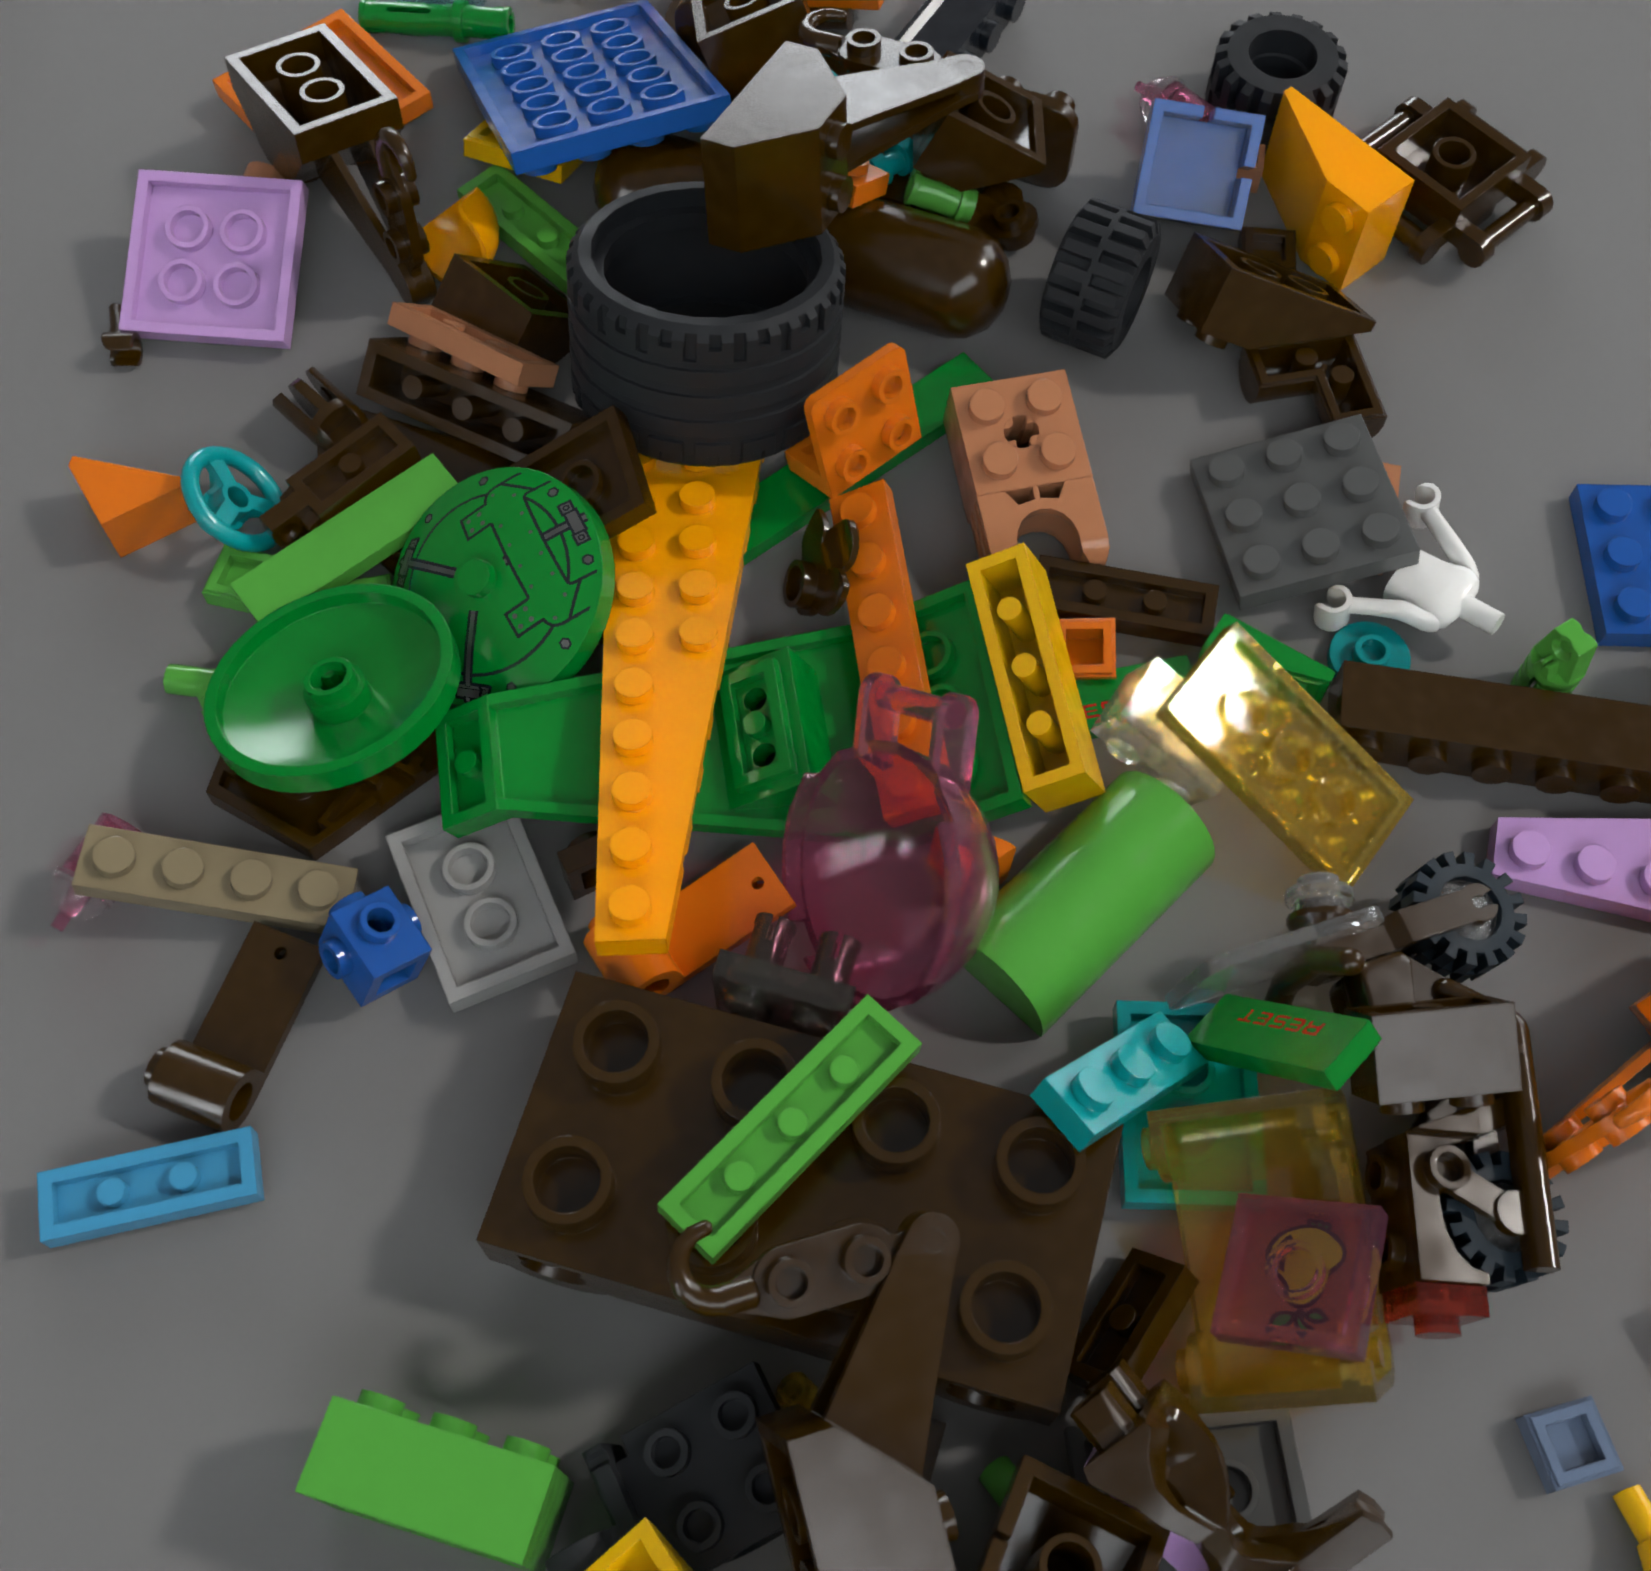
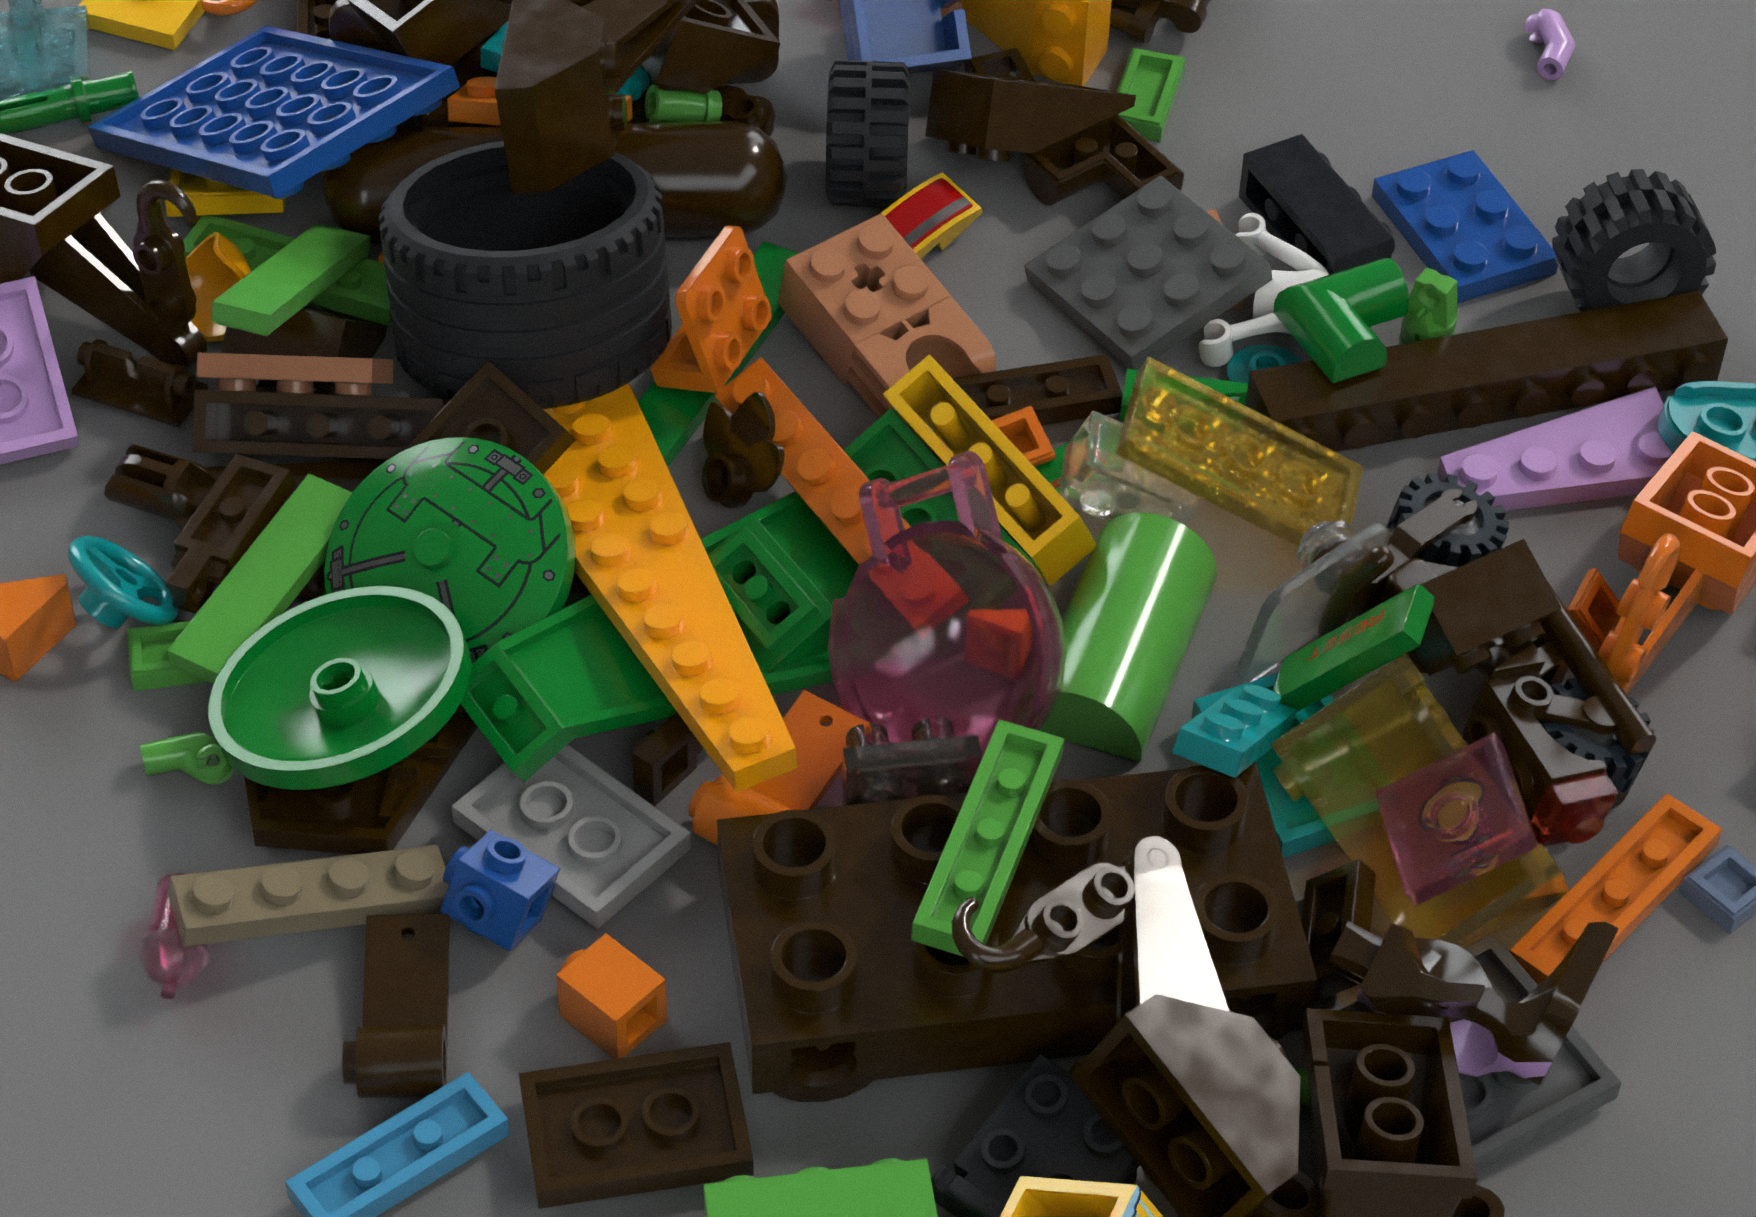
camera: 25 degrees left, 15 degrees down
(352, 301) = (140, 387): none -> dark brown hinge
(368, 1246) = (635, 1125): none -> dark brown plate
(416, 1097) = (611, 996): none -> orange brick
(495, 259) = (290, 279): none -> bright green tile
(1119, 379) = (932, 214): none -> slope
(1401, 316) = (1155, 82): none -> bright green tile
(1439, 1409) = (1622, 884): none -> orange plate
(1453, 629) = (1335, 314): none -> green brick
(1500, 505) = (1312, 205): none -> black brick
(1575, 1059) = (1595, 608): none -> orange slope

